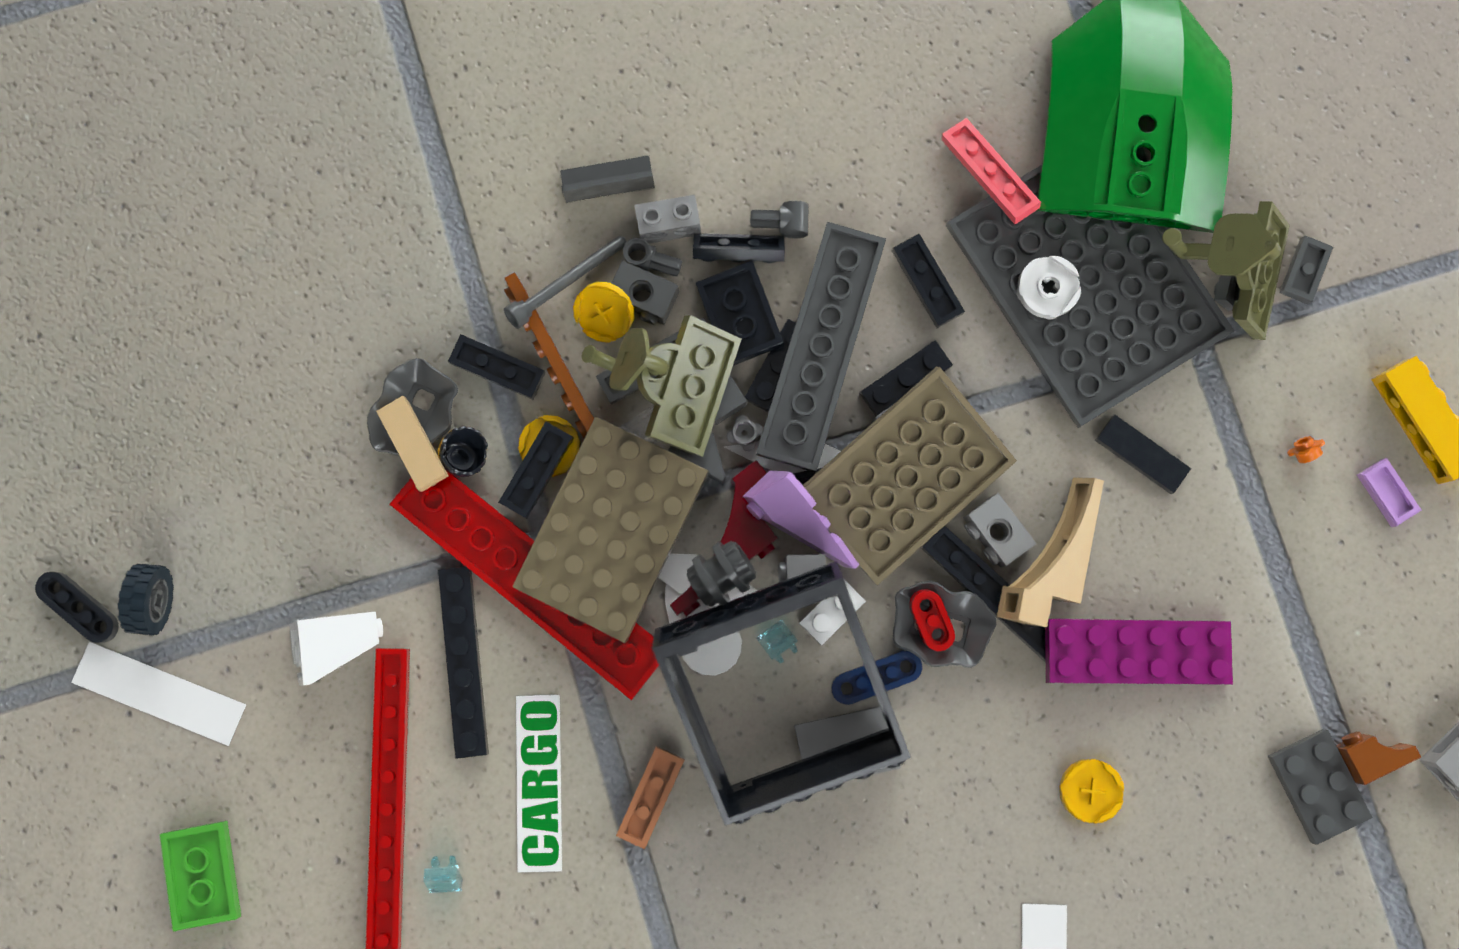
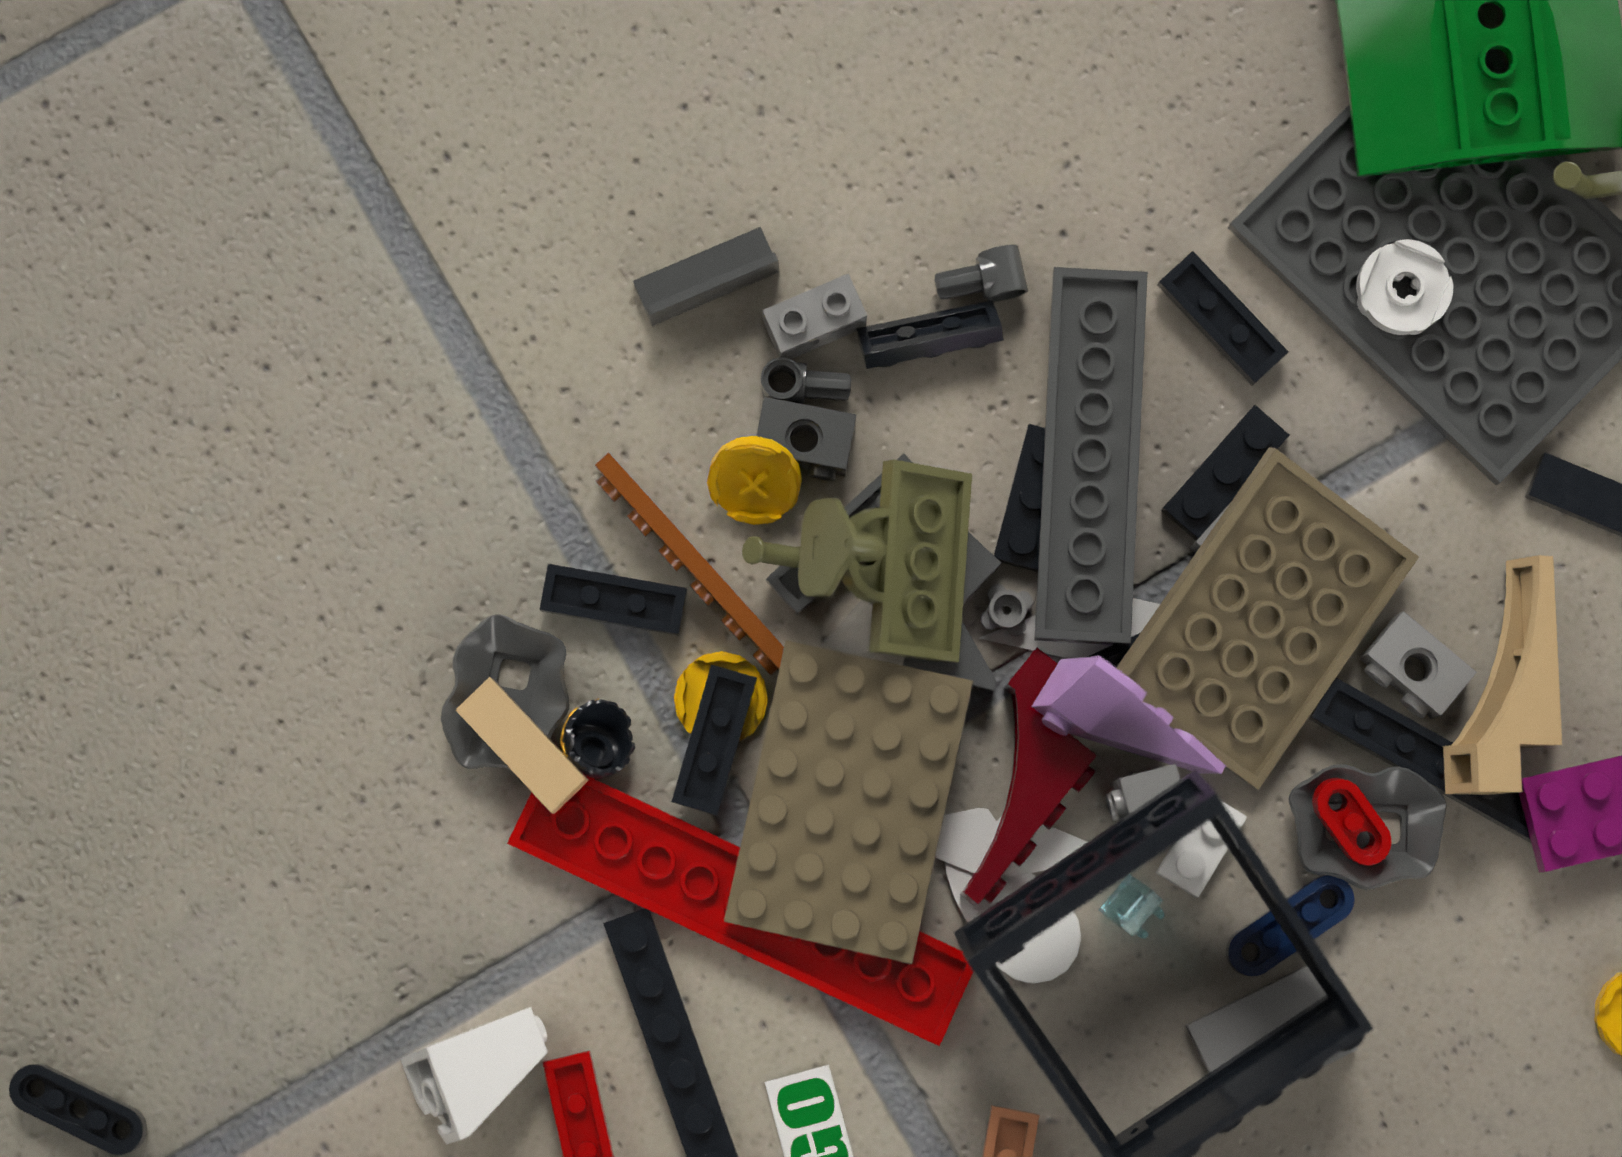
camera: 15 degrees left, 0 degrees up
(145, 599) = (185, 1071): black wheel -> none
(519, 312) = (633, 512): dark grey piece -> none
(721, 573) = (1030, 828): dark grey piece -> none
(740, 307) = (957, 428): black plate -> none
(991, 171) = (1276, 133): coral plate -> none

